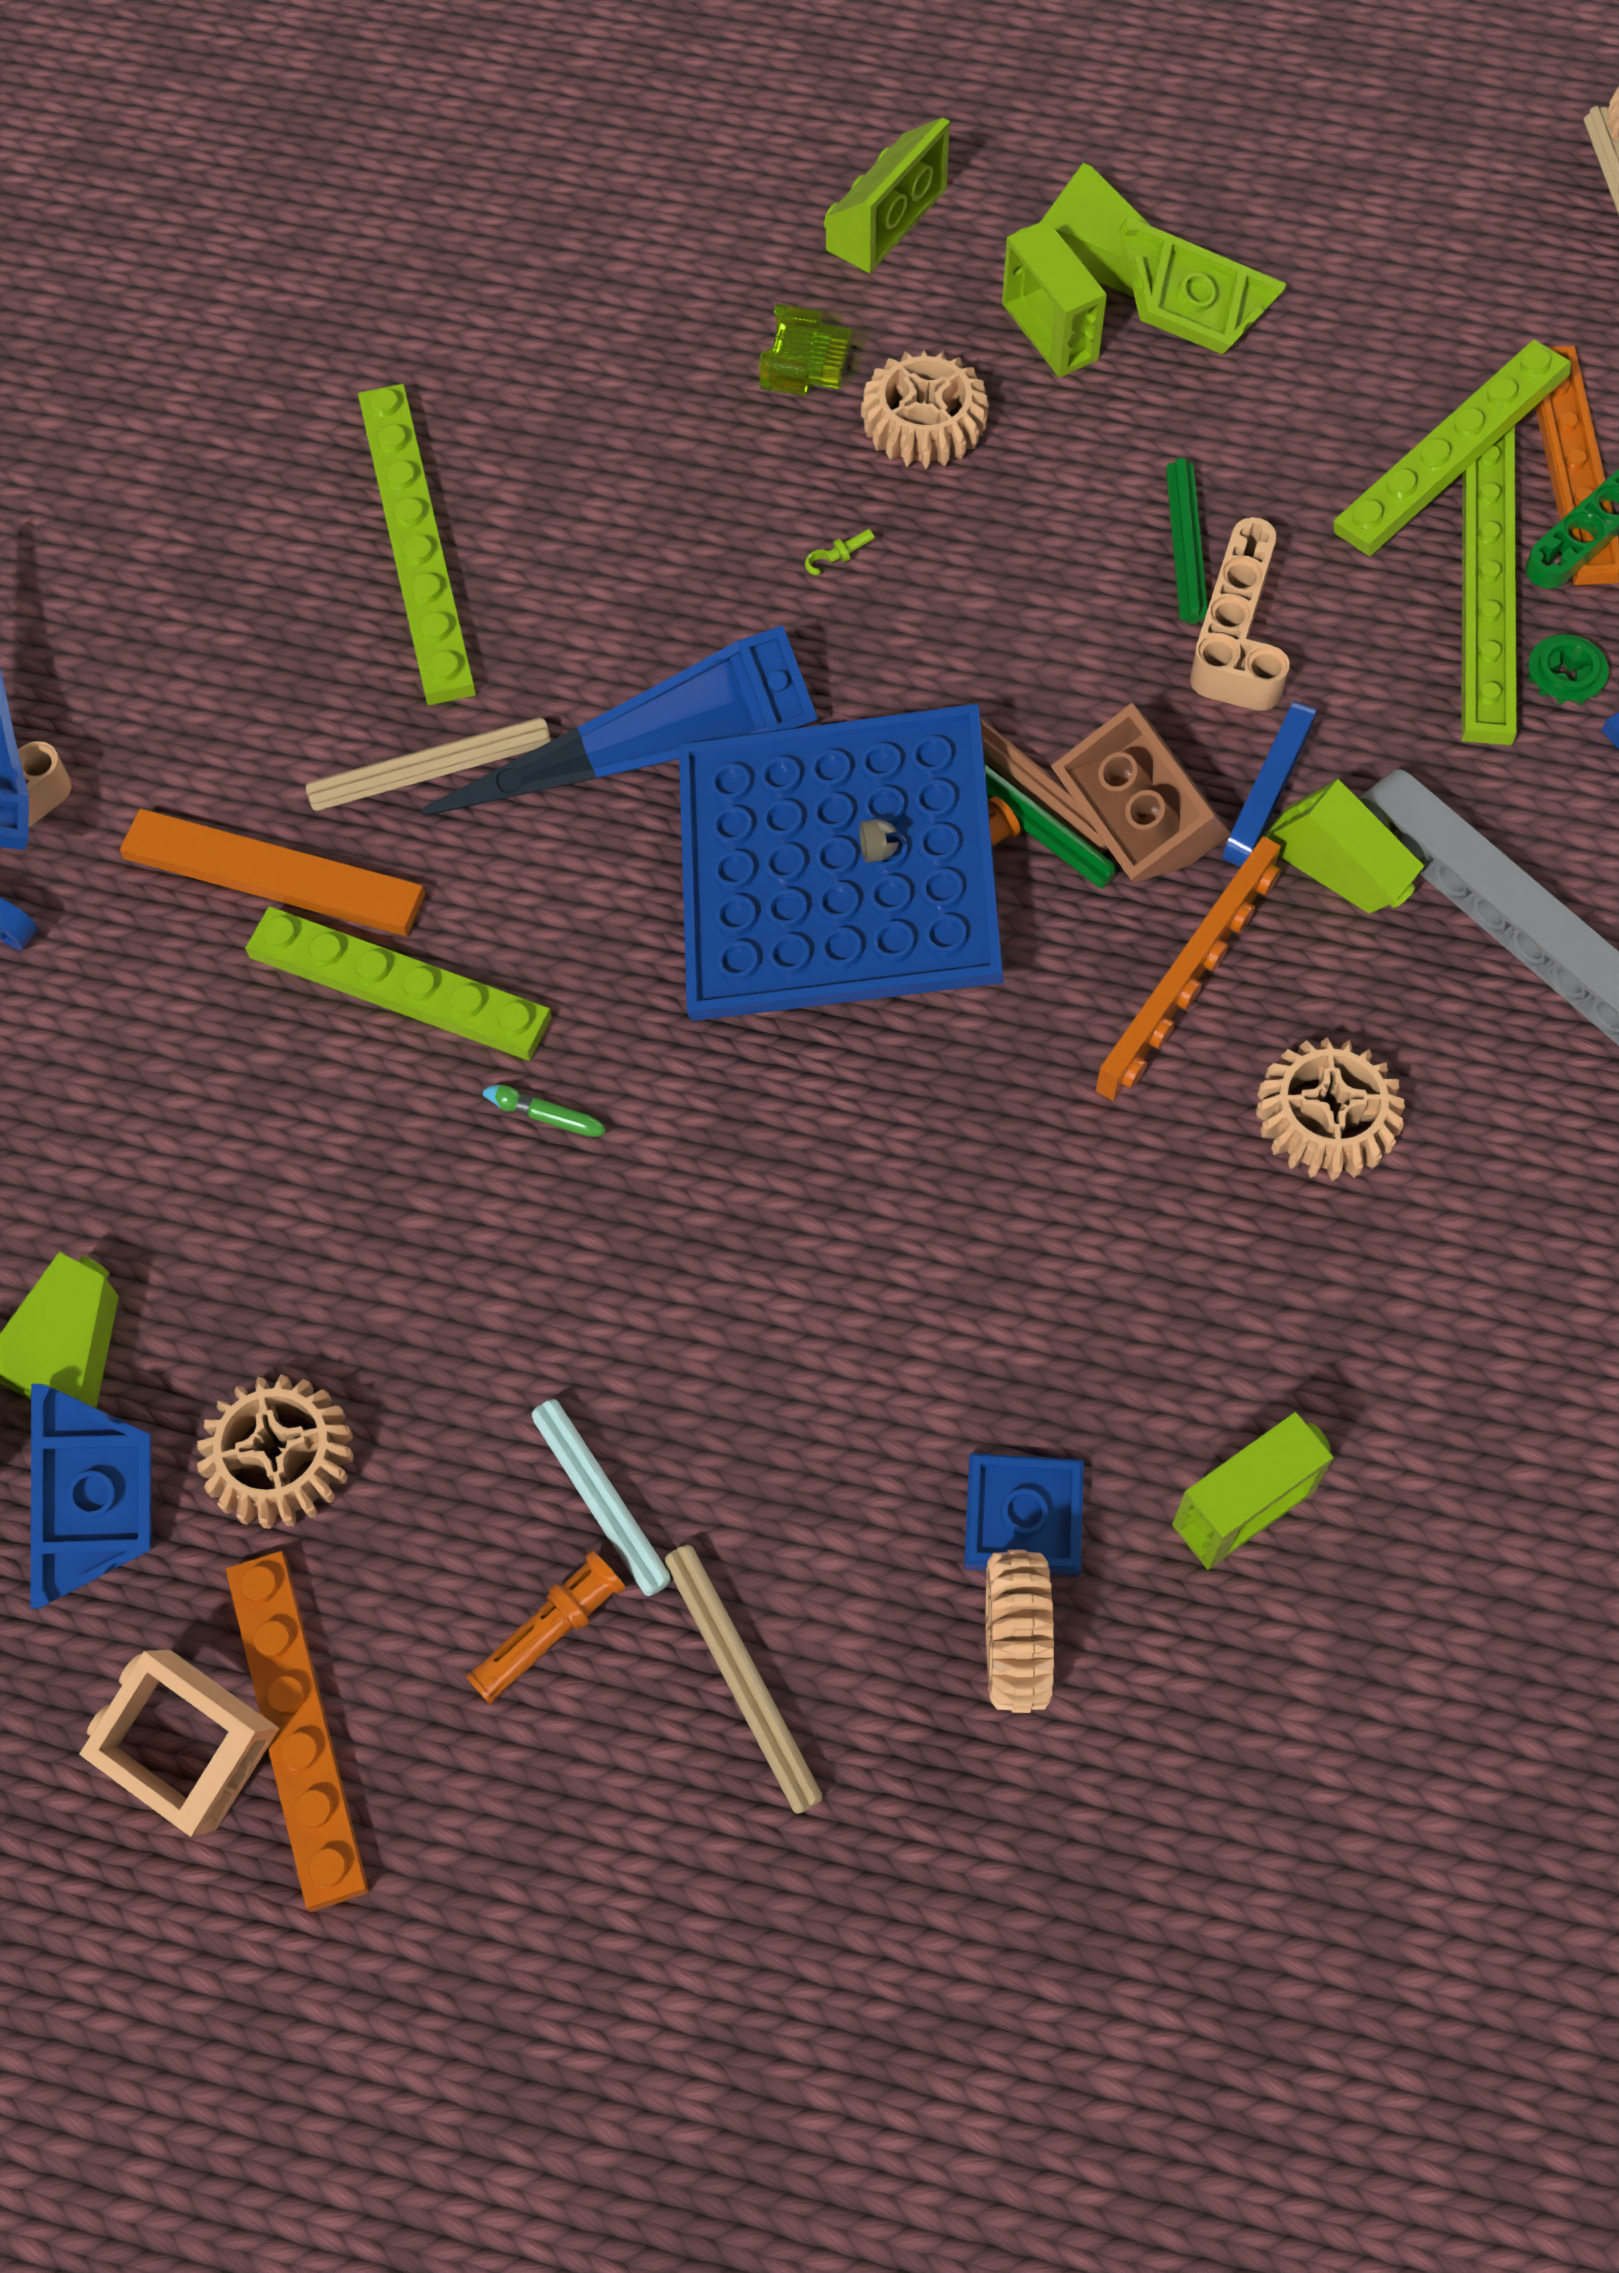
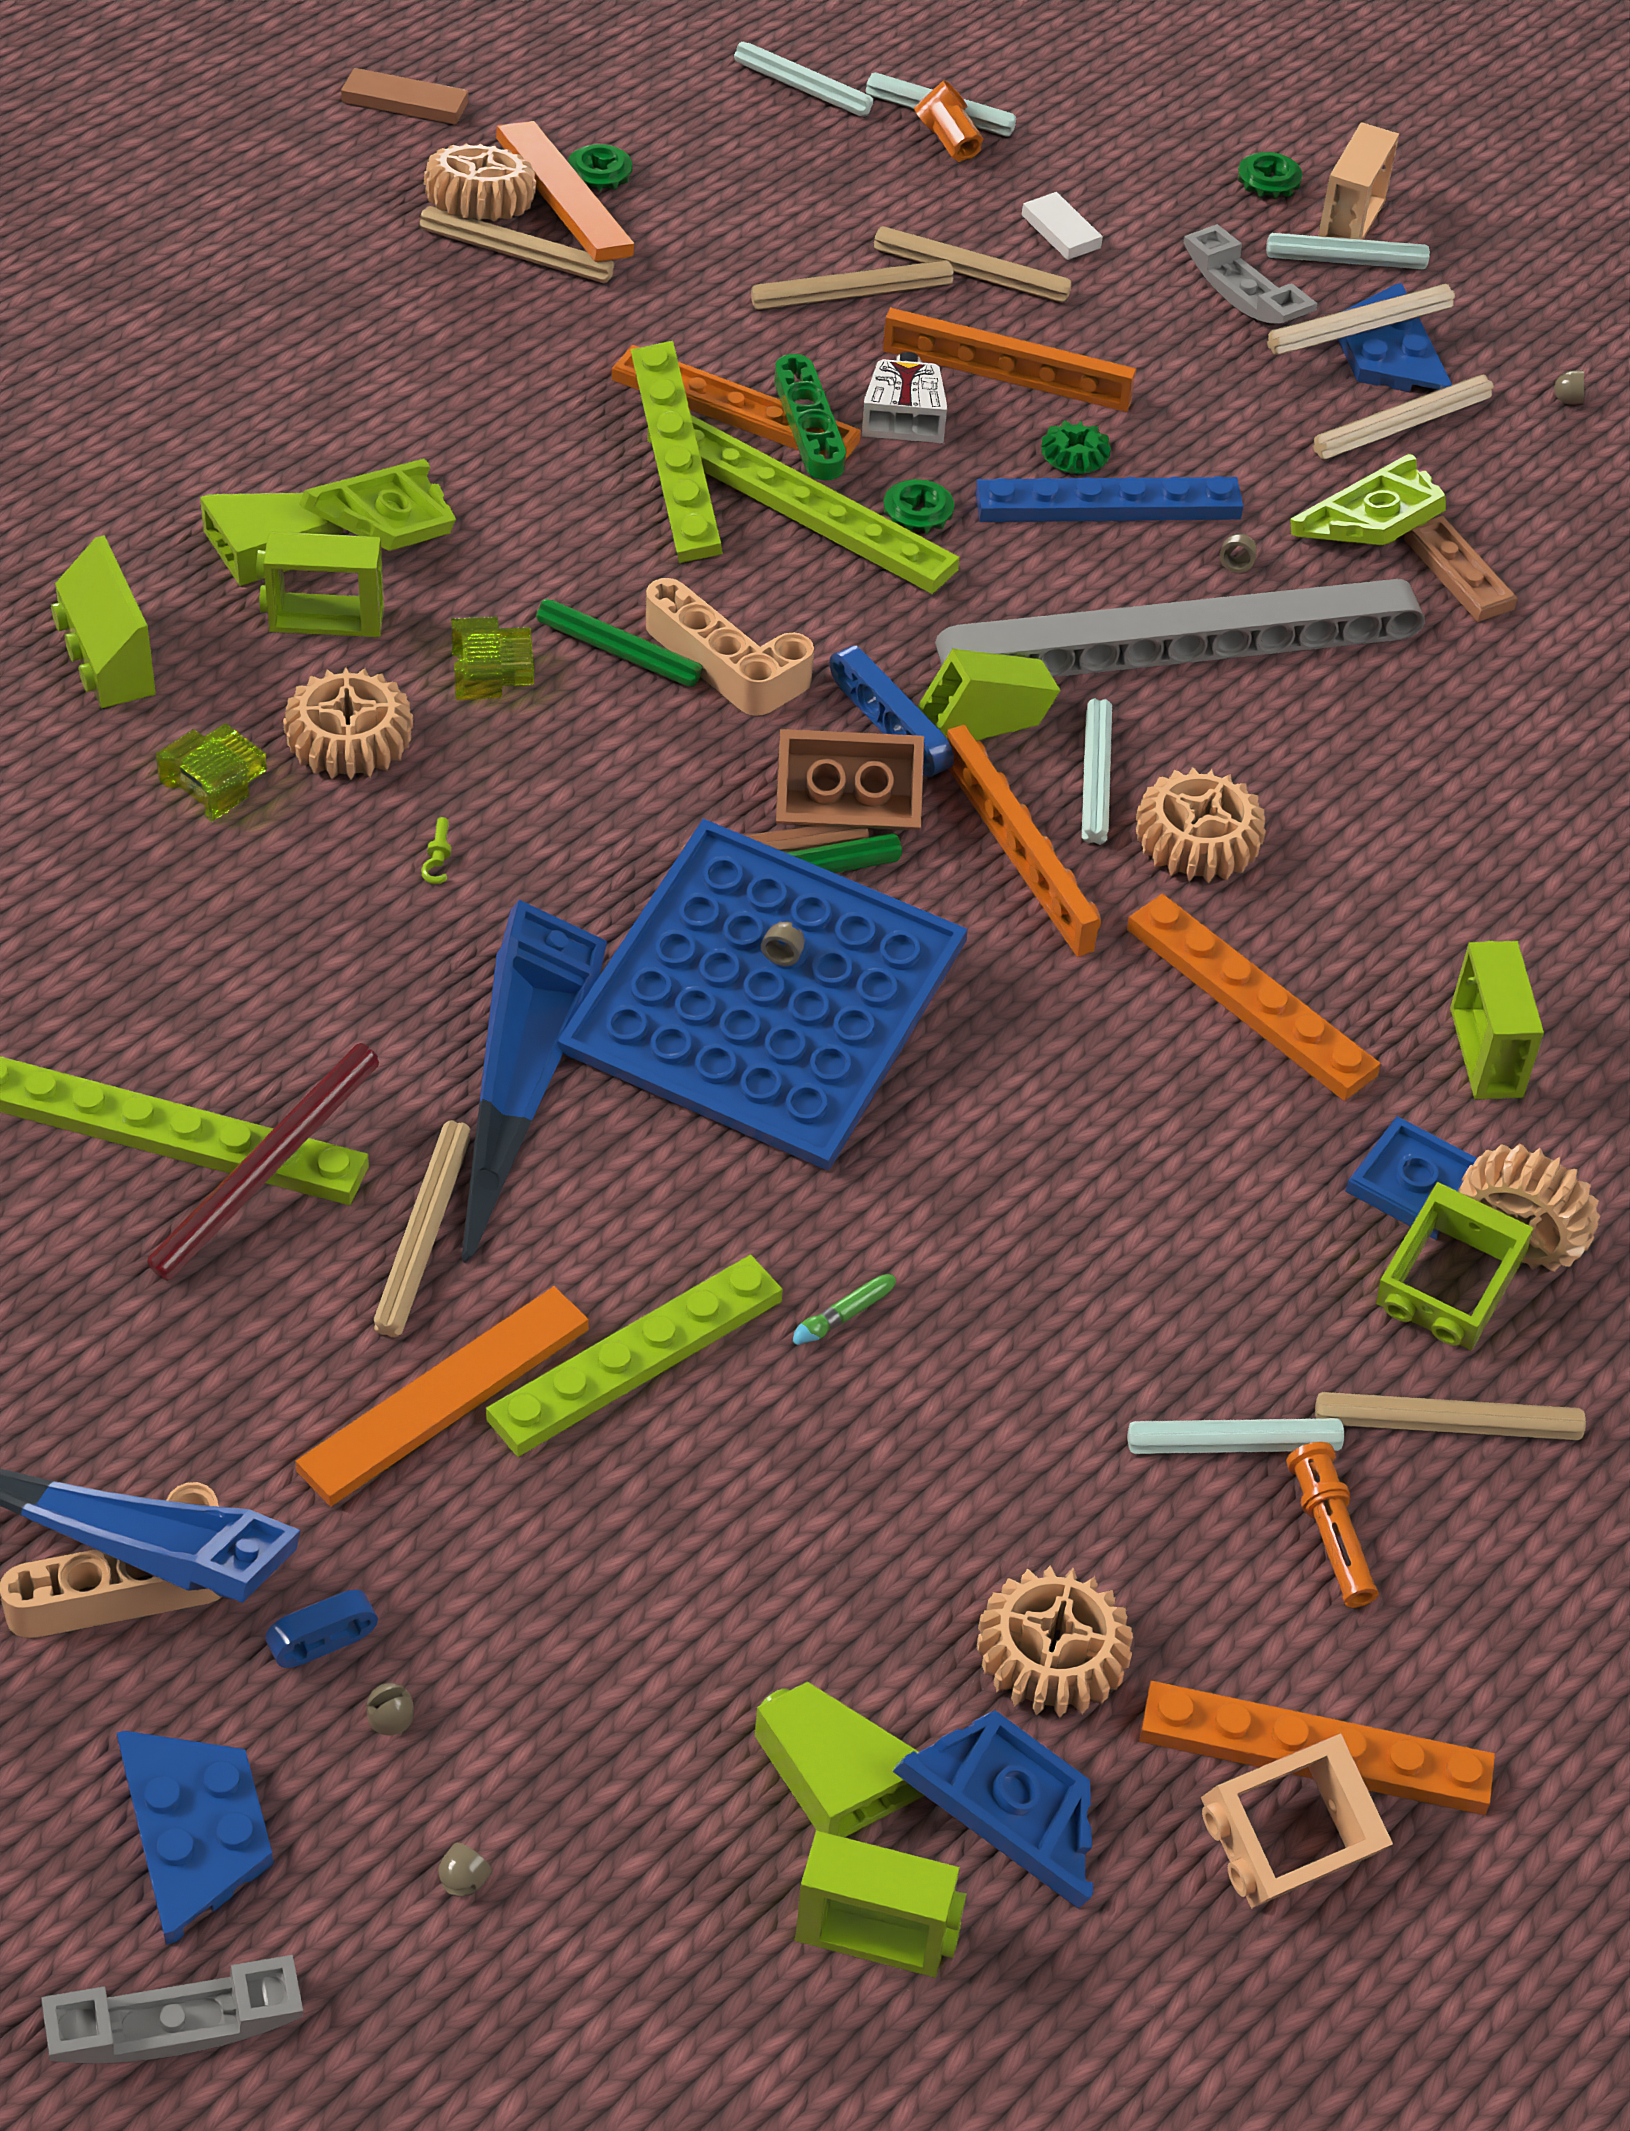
camera: 65 degrees left, 15 degrees down
(405, 617) = (263, 1162): none -> dark red axle
(843, 1574) = (1474, 1225): none -> lime window
(1083, 460) = (489, 657): none -> clear neon green piece
(1150, 1264) = (1254, 997): none -> orange plate
(1338, 989) = (1097, 771): none -> light aqua axle

